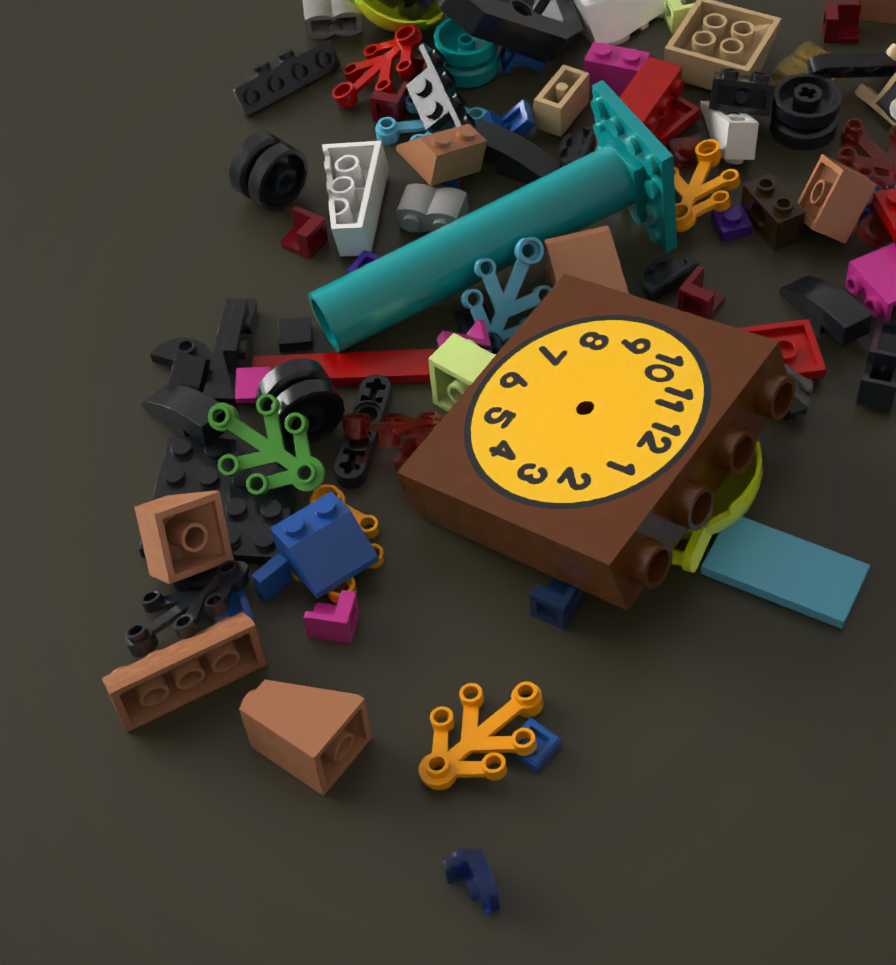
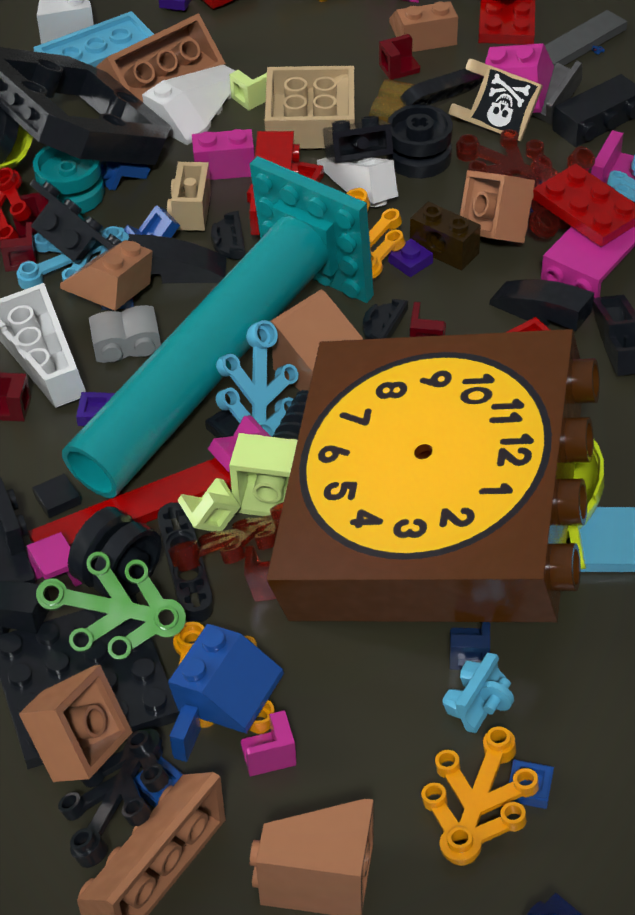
camera: 30 degrees left, 5 degrees down
(407, 394) = (213, 509): none -> yellowish green panel
(537, 646) = (483, 693): none -> medium azure hips

